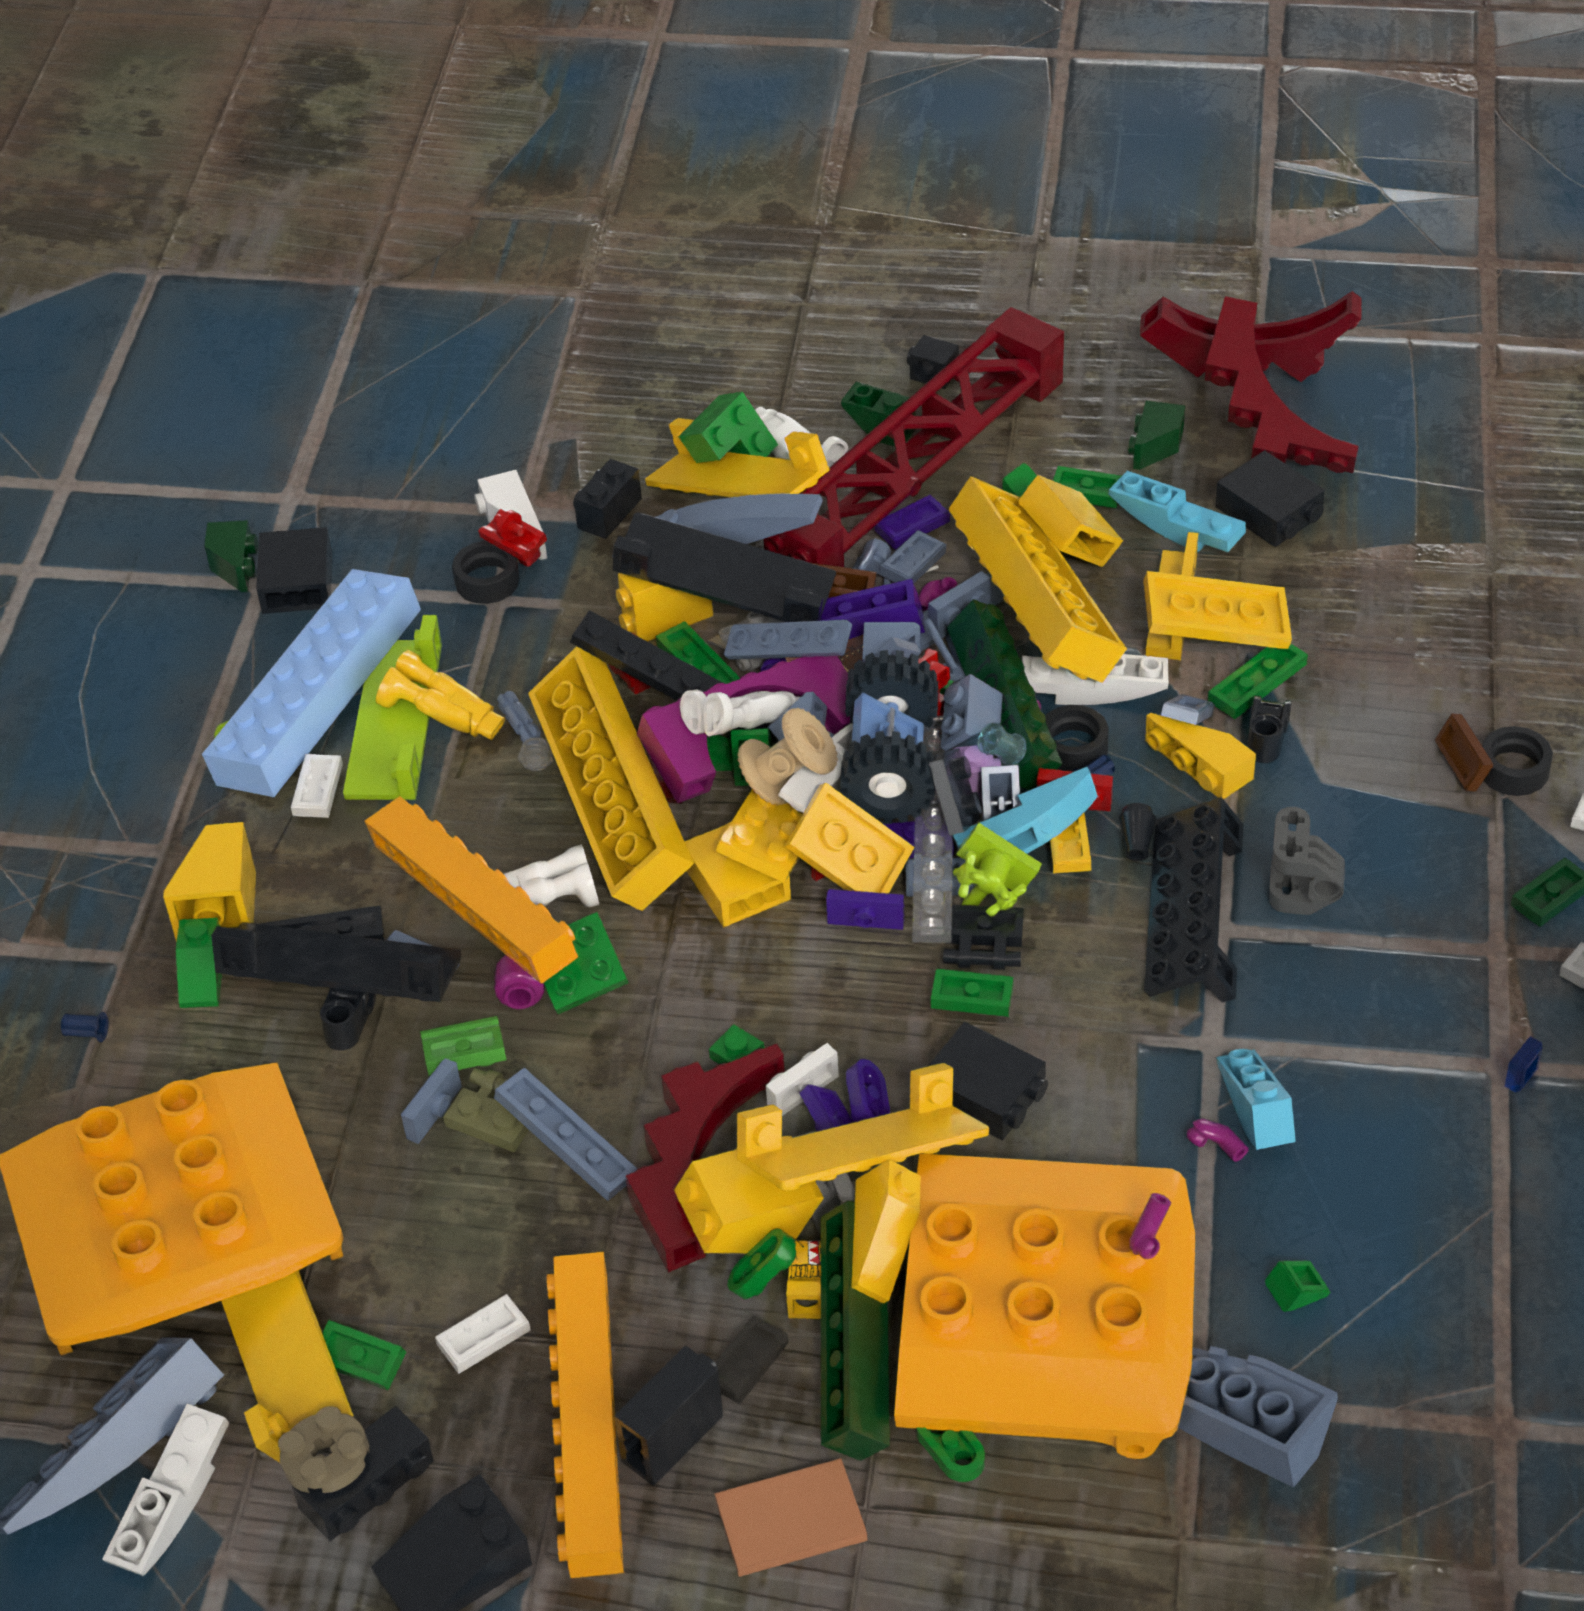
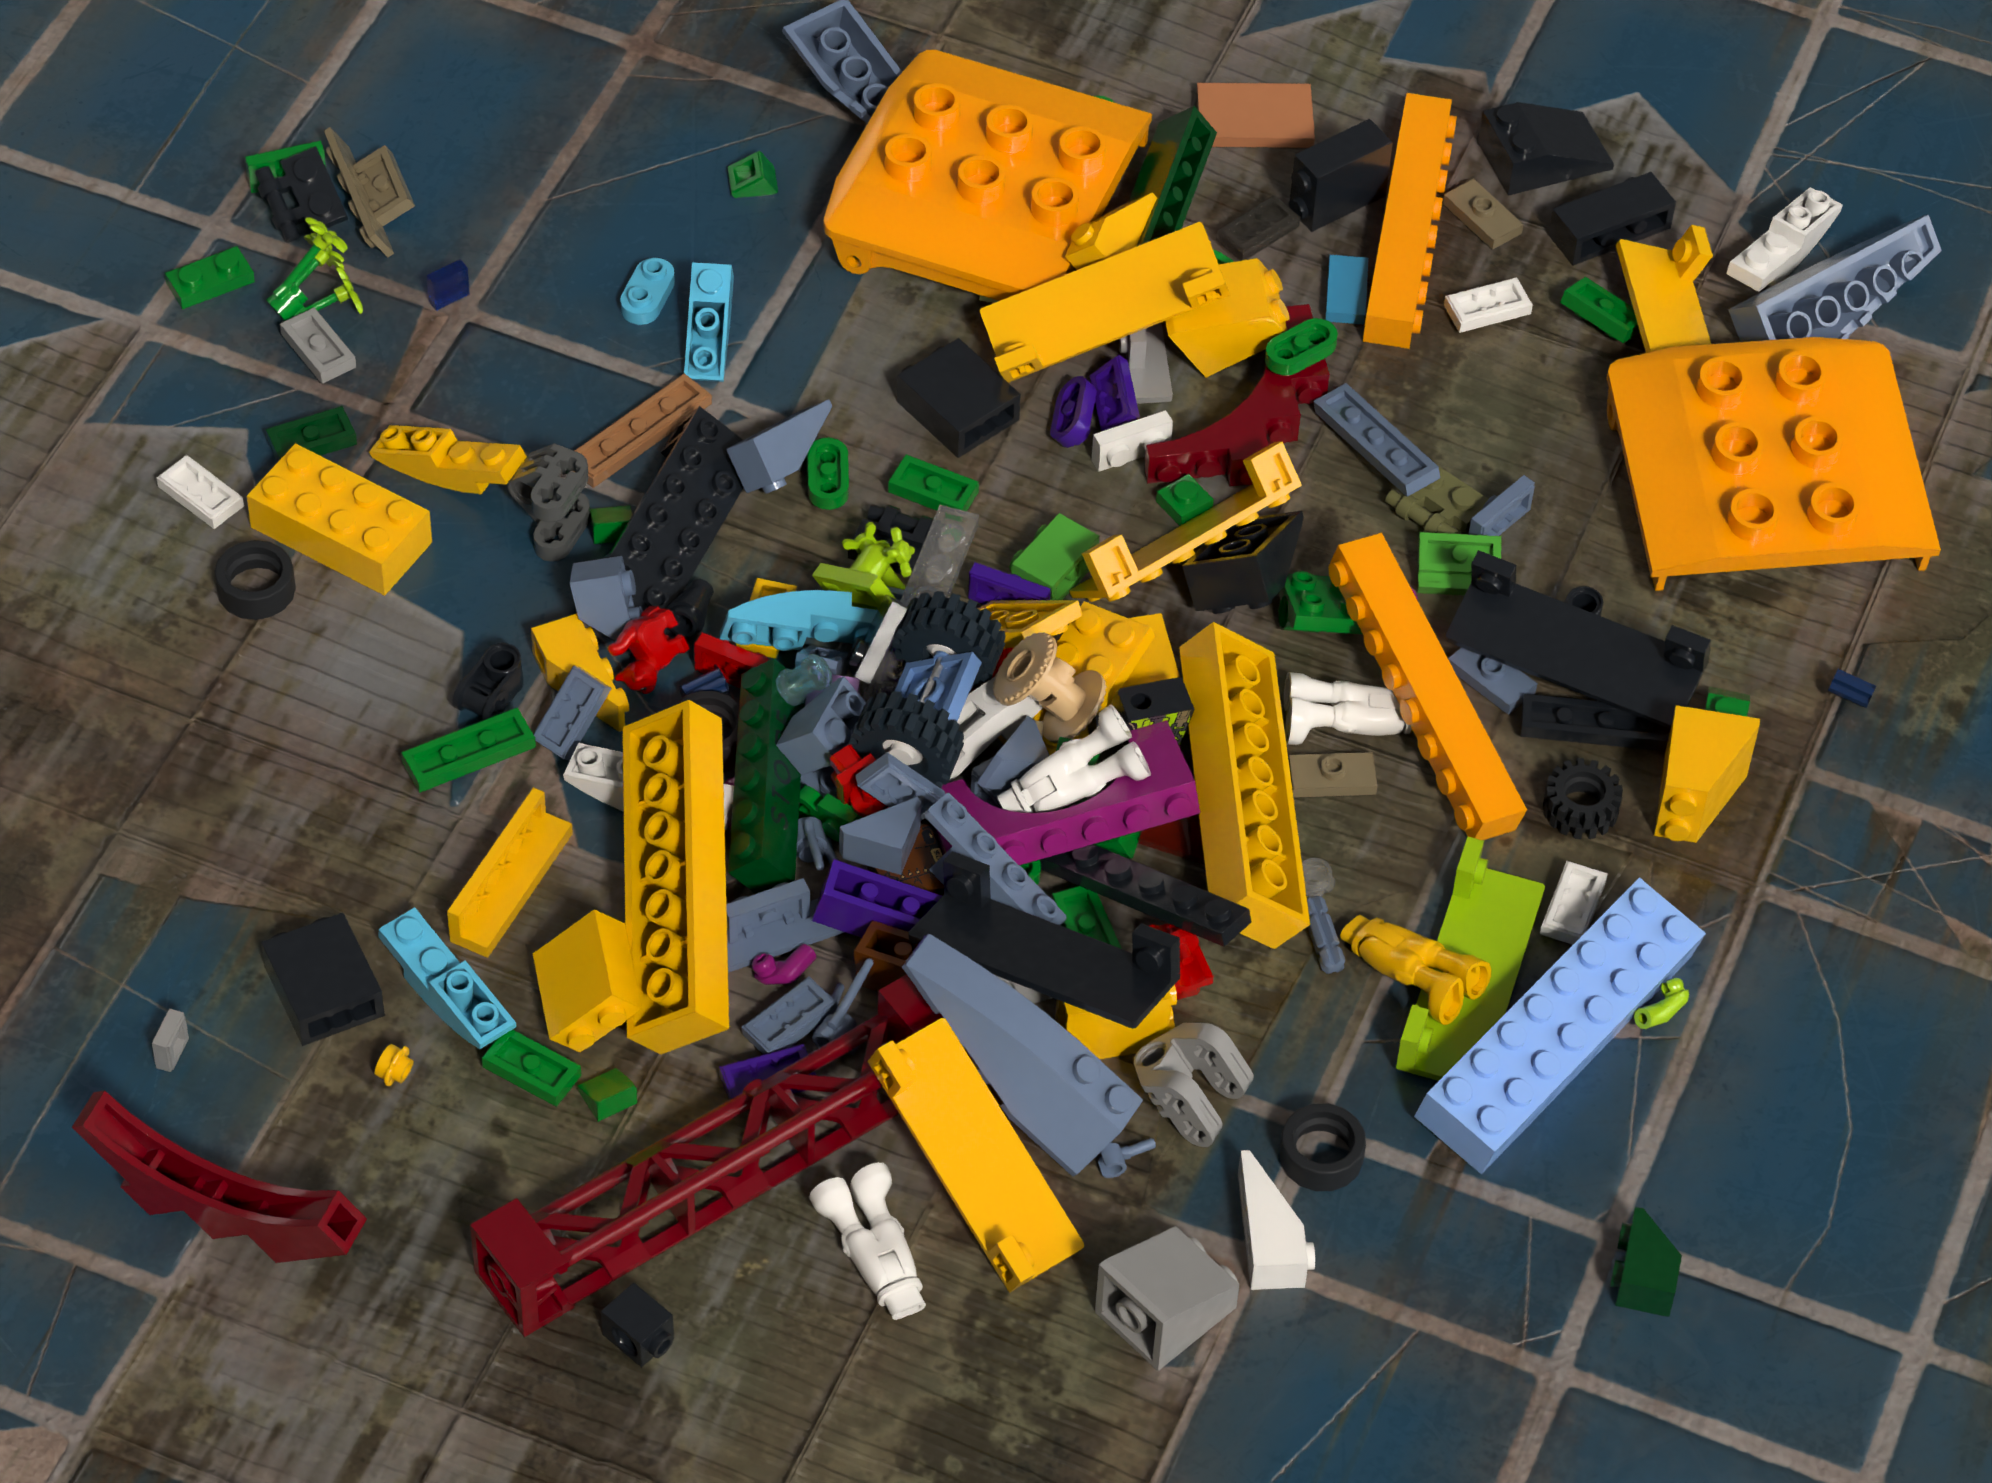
camera: 170 degrees left, 5 degrees up
(294, 570) = (1566, 1215): black brick -> none
(314, 853) = (1581, 817): none -> black tyre
(319, 1431) = (1647, 190): dark tan plate -> none
(508, 1455) = (1483, 214): none -> dark tan plate
(514, 536) = (1282, 1154): red hips -> none
(539, 842) = (1333, 774): none -> dark tan plate
(575, 443) = (1164, 1294): none -> light grey slope
(598, 587) = (1166, 1075): none -> light grey piece
(607, 498) = (1142, 1206): black brick -> none
(635, 1320) = (1346, 289): none -> dark azure tile
(654, 1177) = (1295, 349): none -> green plate
(660, 976) = (1245, 565): none -> black slope
(705, 799) = (1152, 704): none -> black torso
(722, 981) = (1116, 568): none -> yellow bracket
(725, 427) = (959, 1228): green brick -> none
(835, 947) = (1055, 556): none -> bright green brick
(871, 406) = (743, 1239): dark green slope -> none
(1076, 983) = (828, 473): none -> green plate
(1126, 980) = (777, 450): none -> sand blue slope
(1143, 1237) = (890, 133): magenta arm -> none
(1152, 773) = (649, 646): none -> red animal
(1158, 433) = (405, 1116): dark green slope -> none
(1186, 466) = (394, 1065): none -> yellow plate
(1203, 781) = (604, 594): none -> sand blue slope
(1217, 610) = (485, 789): yellow plate -> none
(1218, 1133) = (760, 306): magenta arm -> none
(1245, 890) = (609, 523): none -> green slope
(1255, 404) = (270, 1066): dark red arch -> none
(1267, 986) = (642, 428): none -> medium nougat tile
(1335, 1122) = (652, 284): none -> medium azure plate
(1352, 431) = (170, 1040): none -> light grey tile
(1417, 899) = (444, 461): none -> yellow slope
(1464, 752) = (305, 596): reddish brown tile -> none
(1476, 818) = (339, 519): none -> yellow brick

